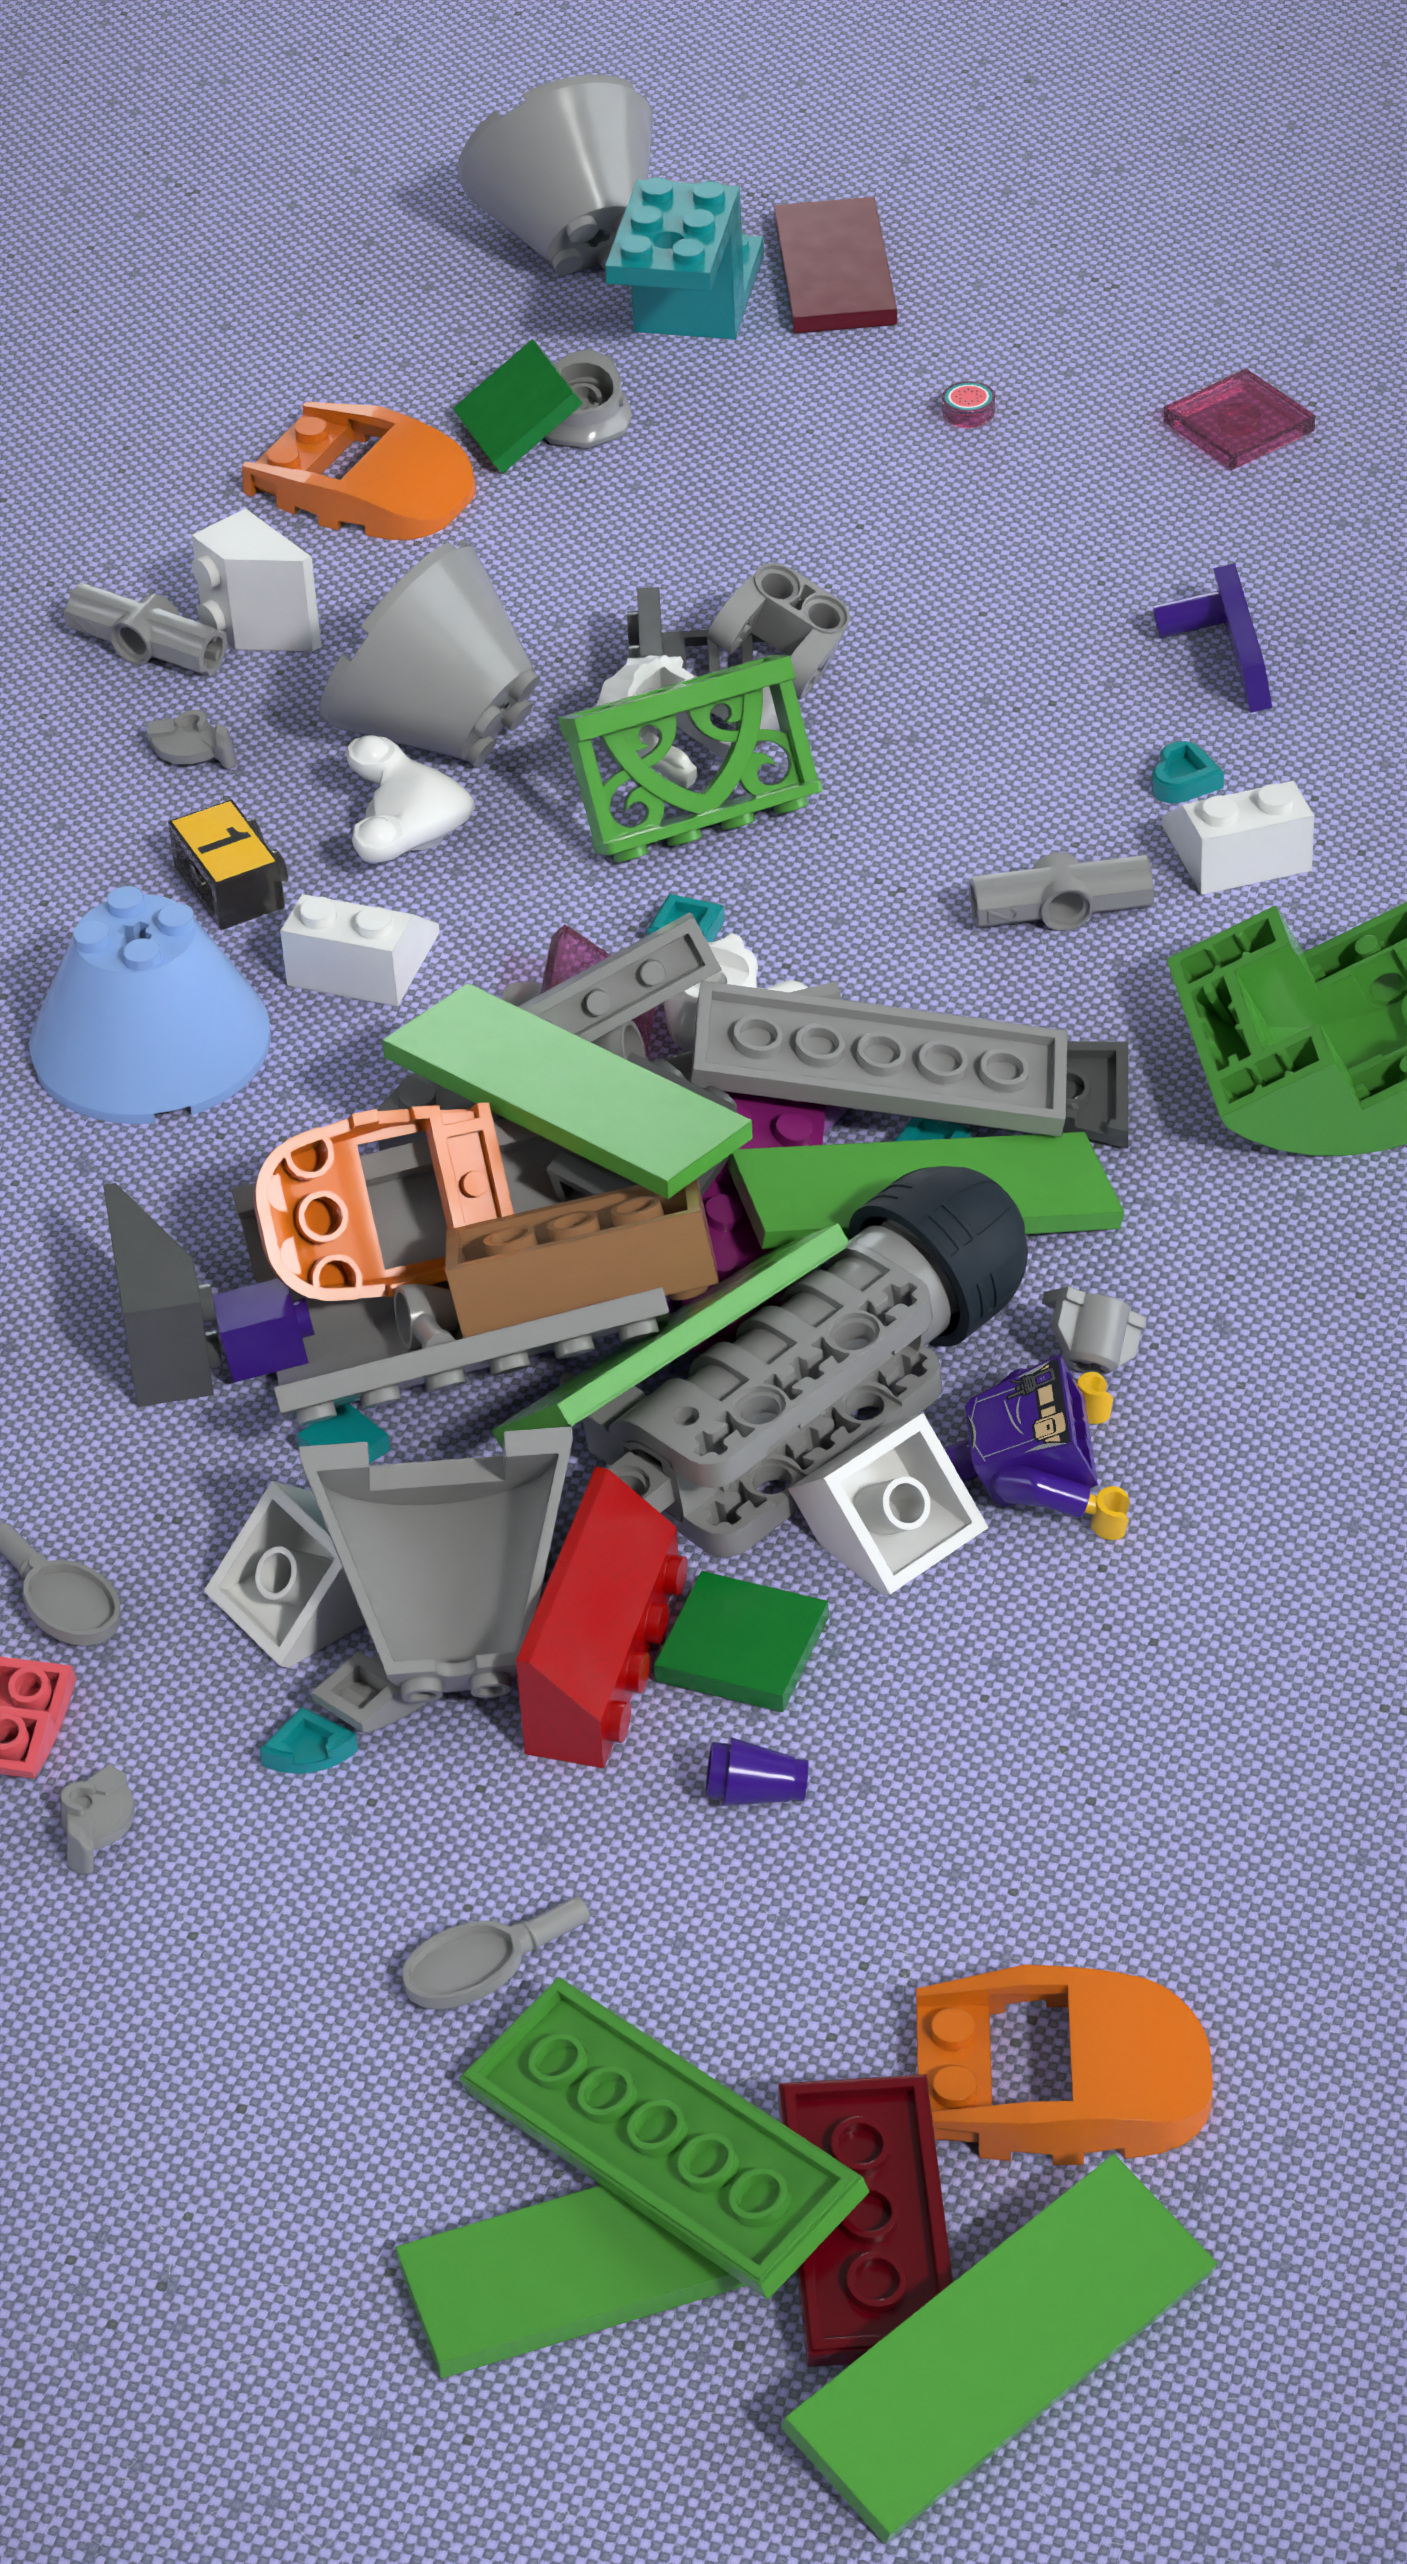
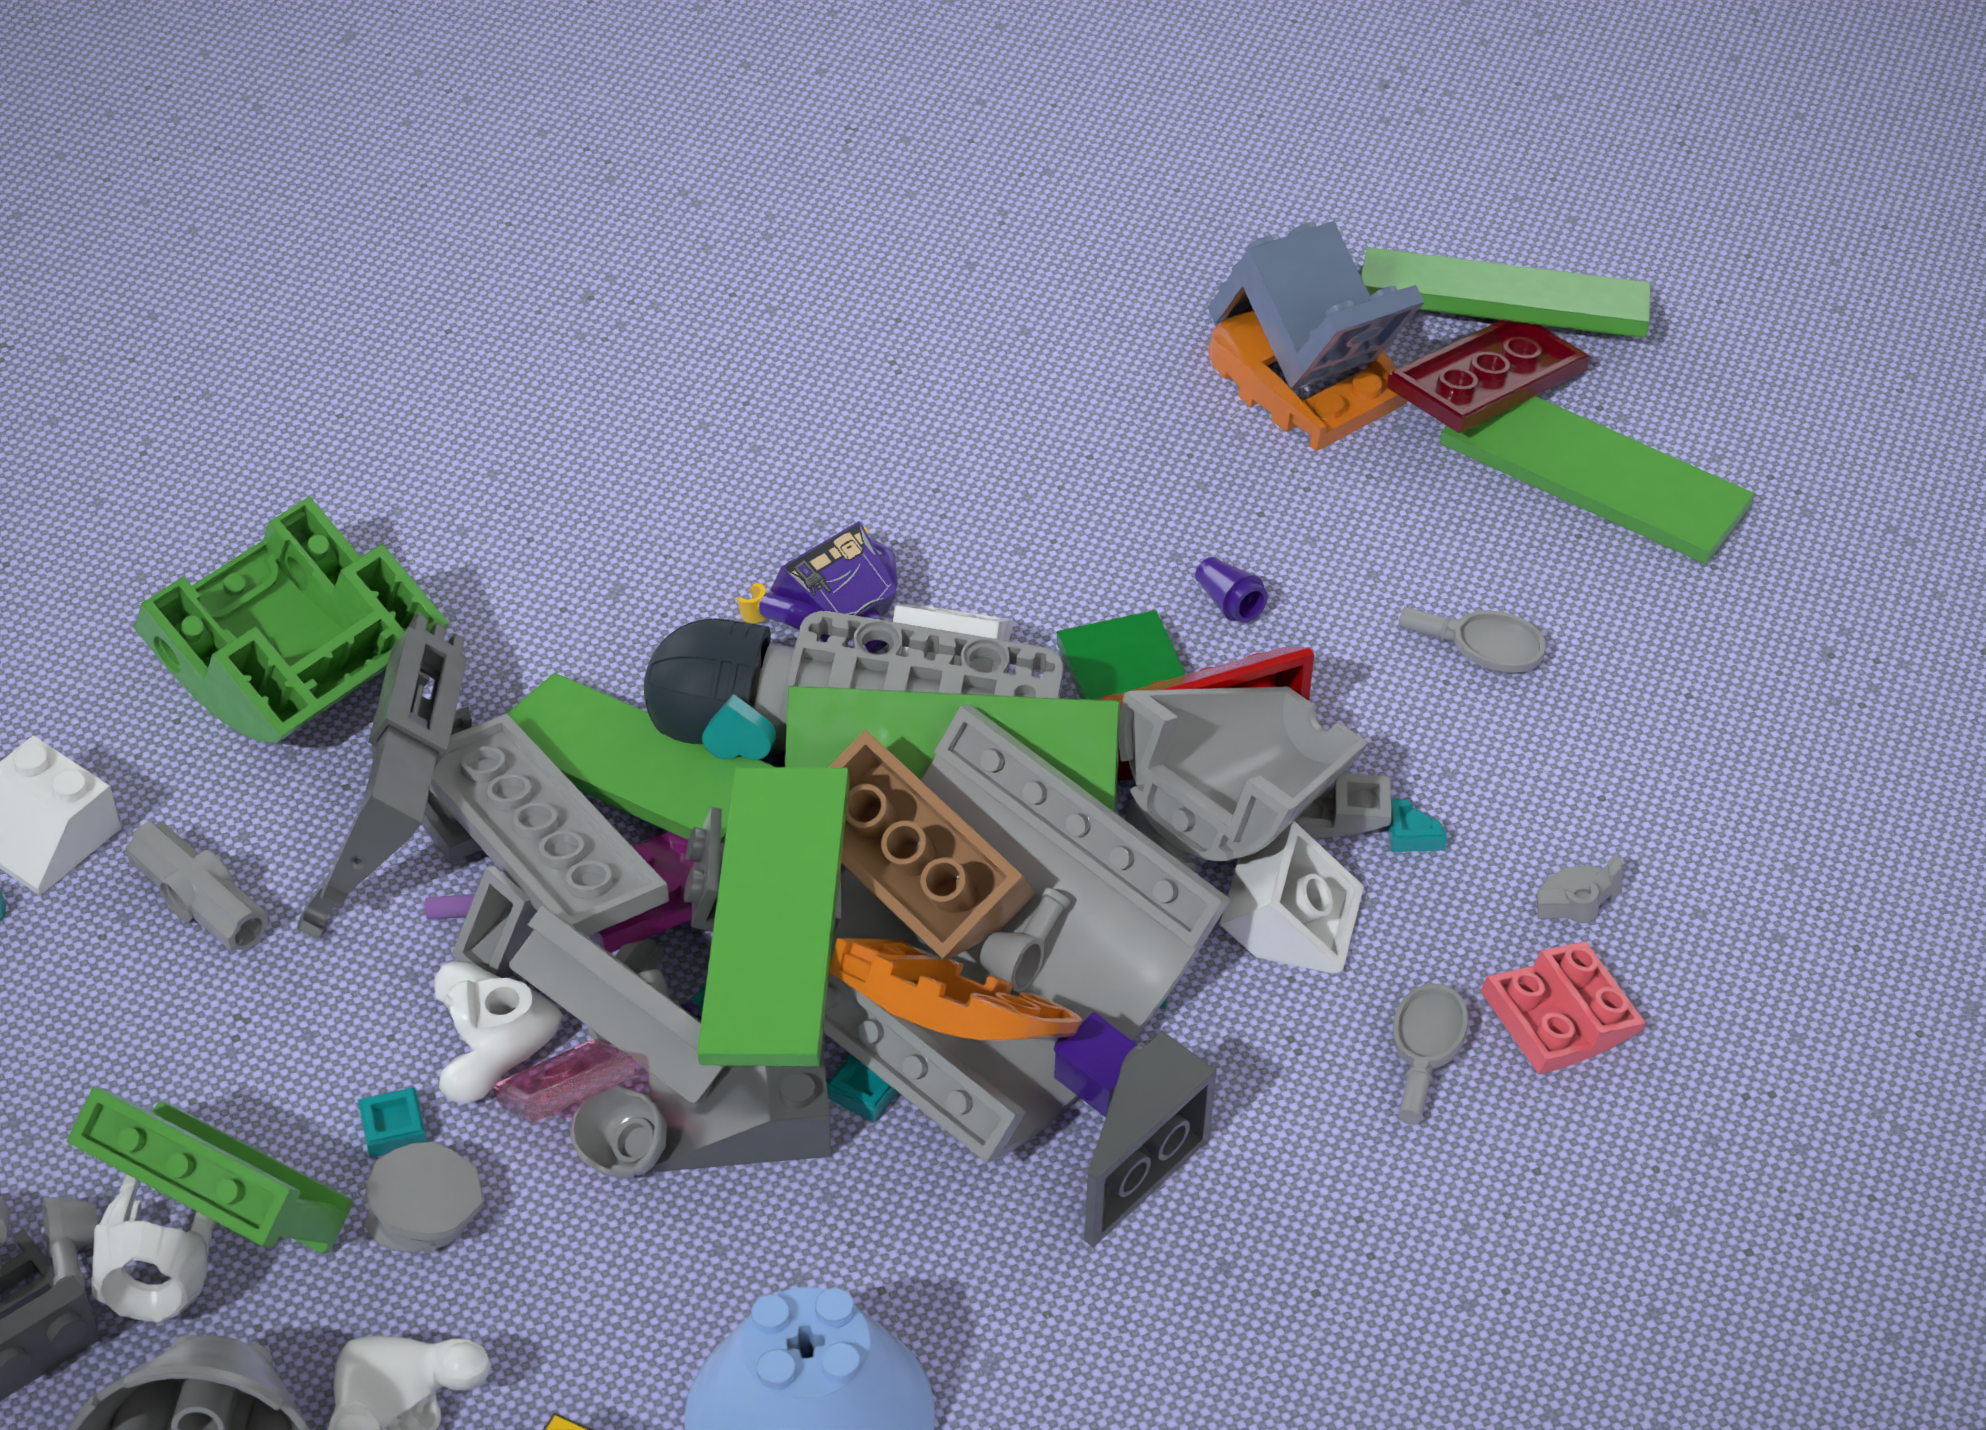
camera: 130 degrees left, 5 degrees up
(354, 949) = (587, 1320): white slope -> none
(575, 887) = (421, 1197): none -> light grey hat
(665, 2137) = (1534, 469): bright green tile -> none
(839, 1203) = (738, 731): none -> teal tile
(1064, 2006) = (1313, 303): none -> sand blue bracket
(1071, 1008) = (409, 743): none -> dark grey hinge
(1093, 1329) = (694, 605): light grey piece -> none

